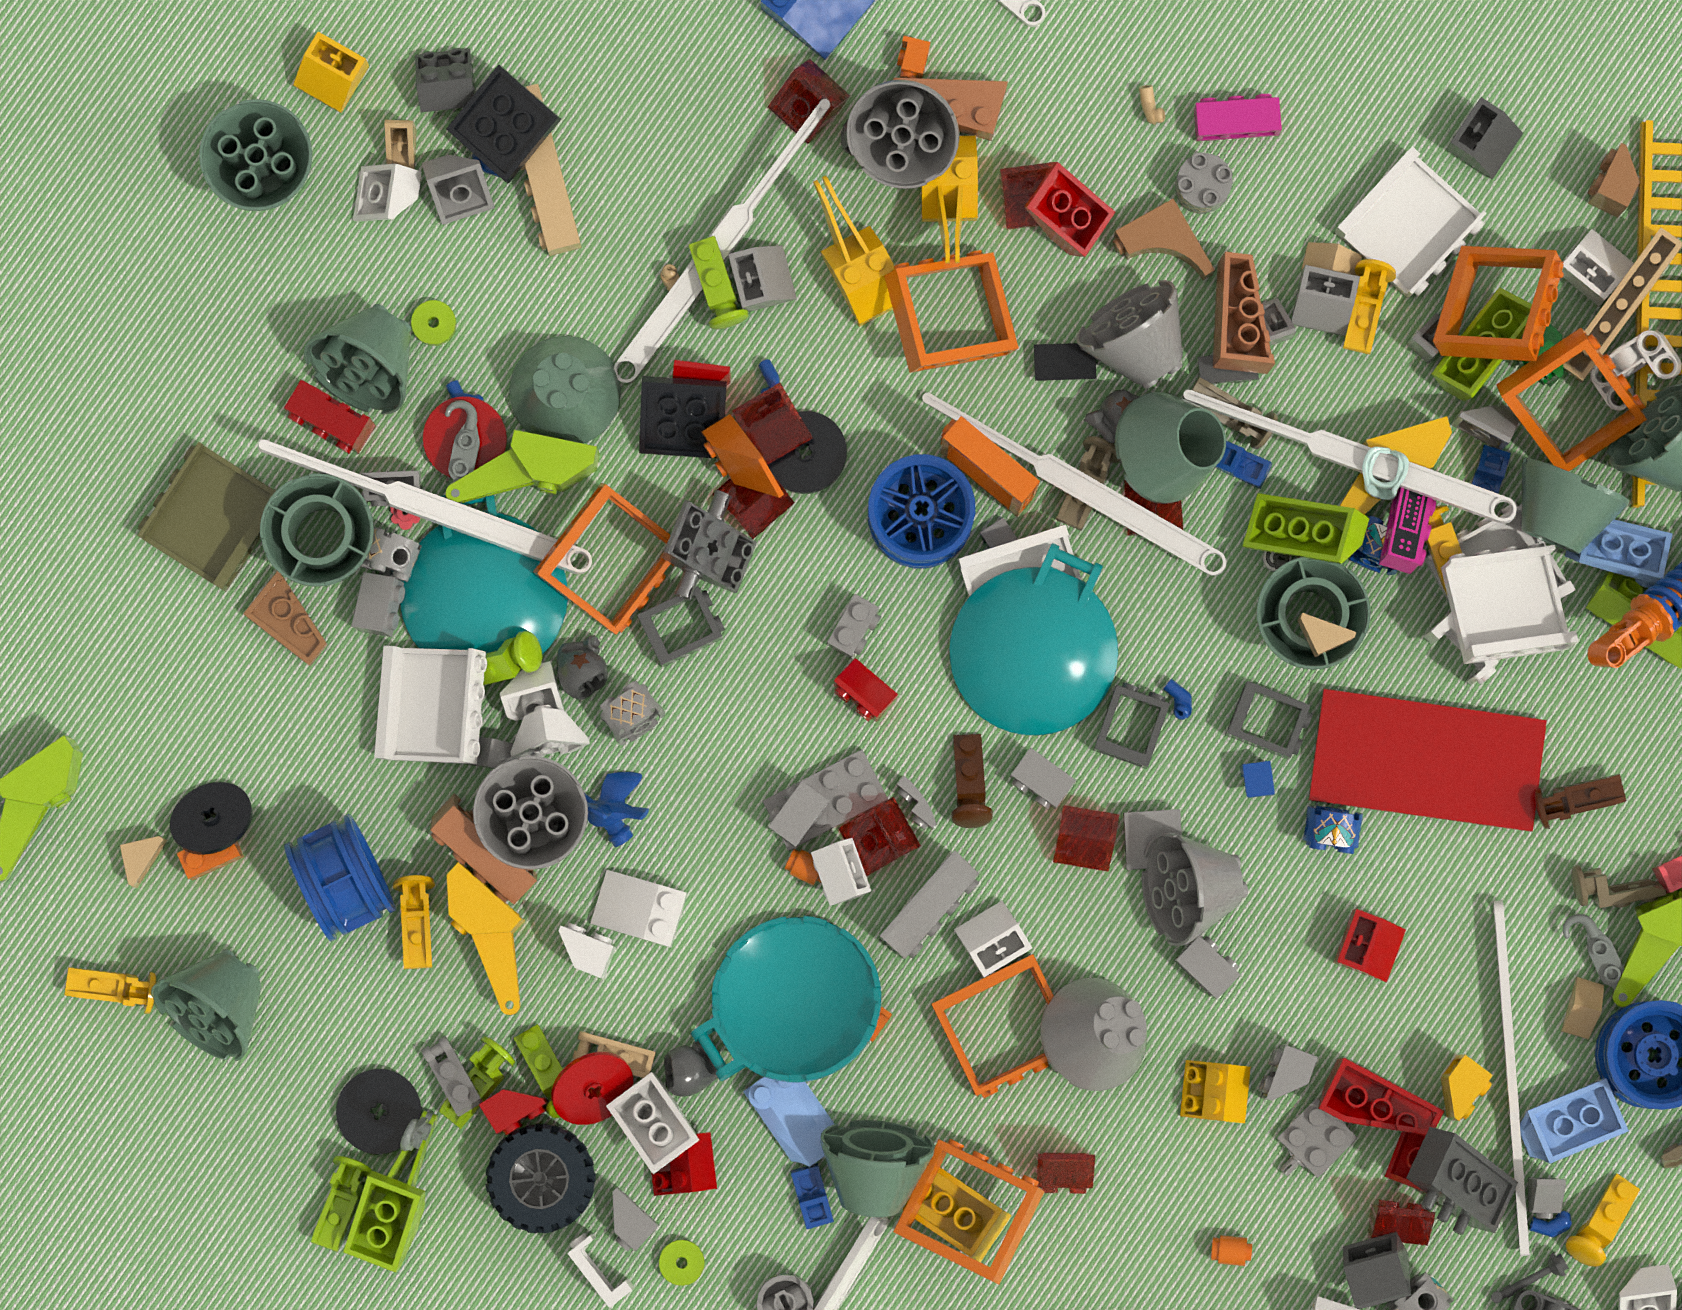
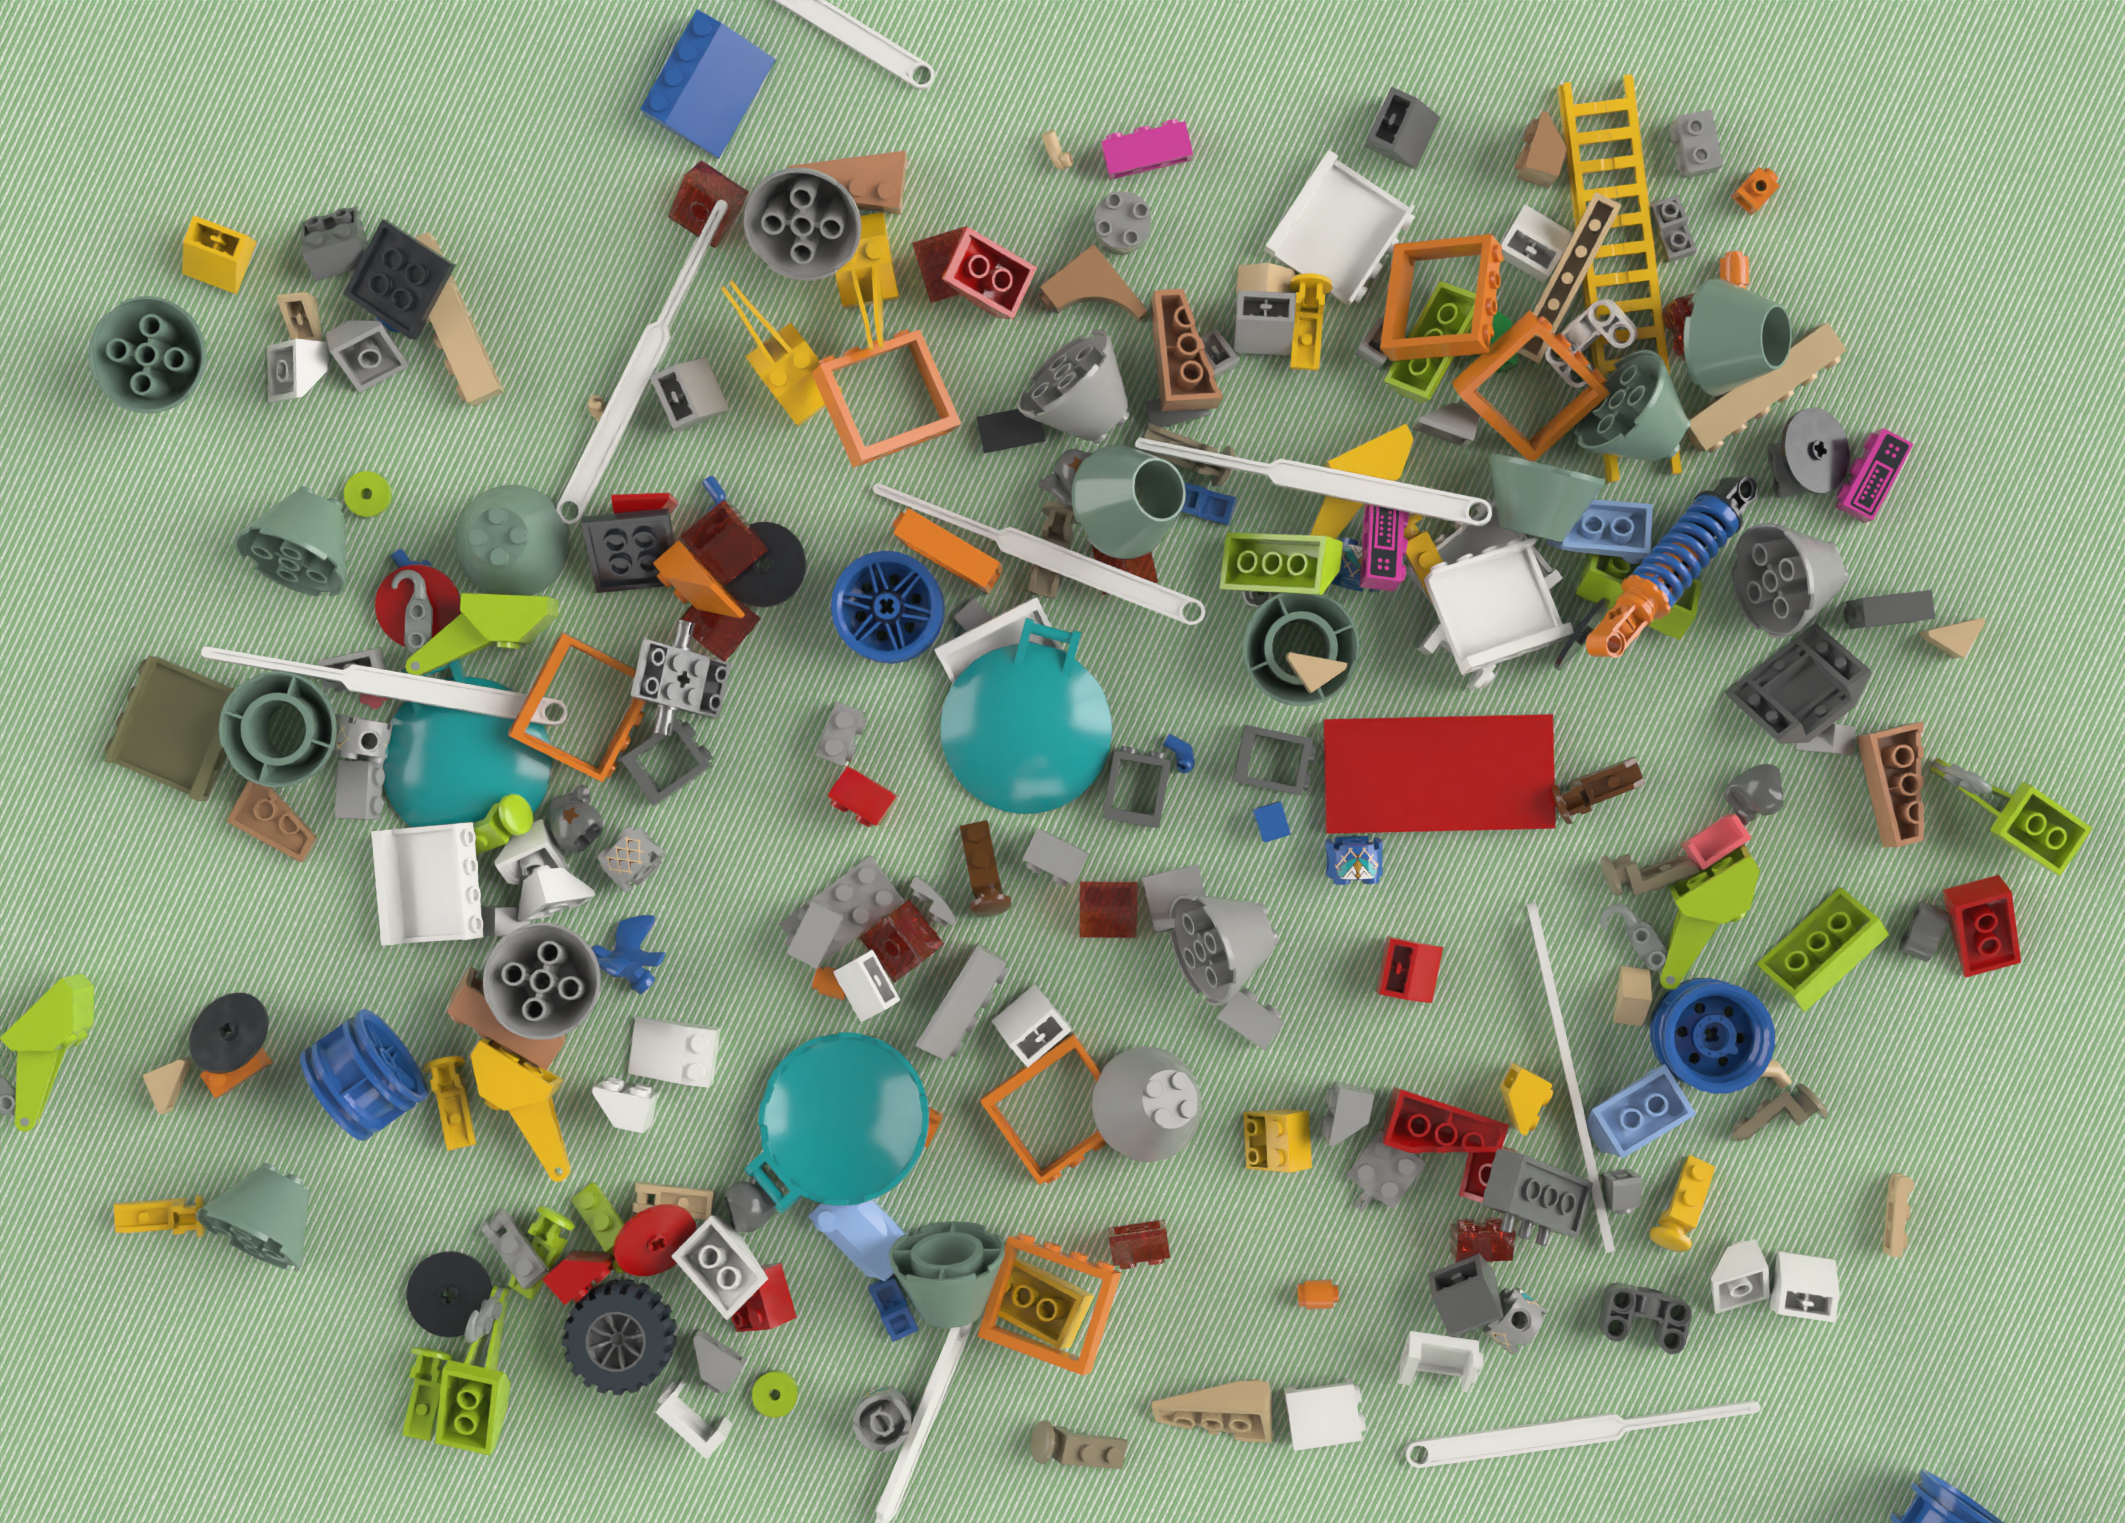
camera: 10 degrees left, 5 degrees up
(329, 417) = (277, 609): red wedge -> none
(716, 284) = (643, 408): lime piece -> none
(914, 58) = (807, 142): orange brick -> none
(1377, 487) = (1347, 508): light aqua piece -> none
(1491, 468) = (1458, 469): blue slope -> none
(1552, 1228) = (1634, 1219): blue arm -> none
(1556, 1265) = (1642, 1255): dark grey piece -> none
(1579, 649) = (1581, 633): none -> black piece

